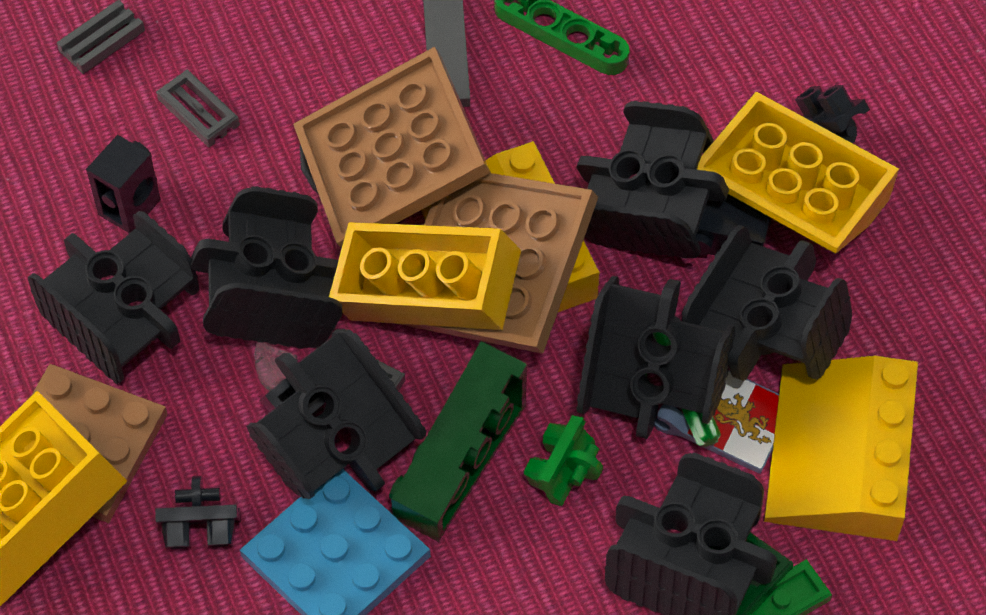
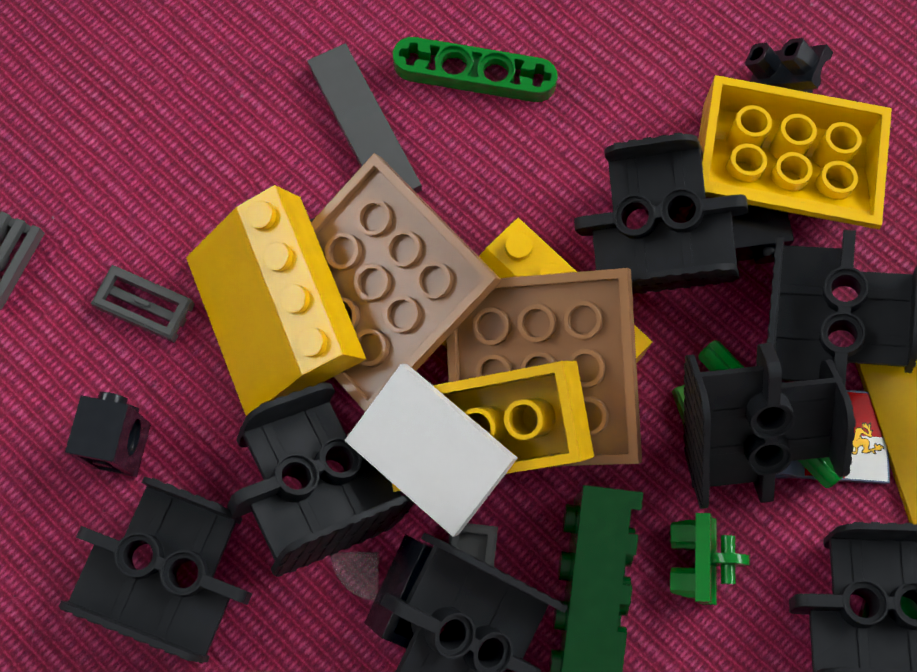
camera: 25 degrees left, 15 degrees up
(306, 125) = (273, 300): none -> yellow slope
(370, 270) = (430, 449): none -> white tile

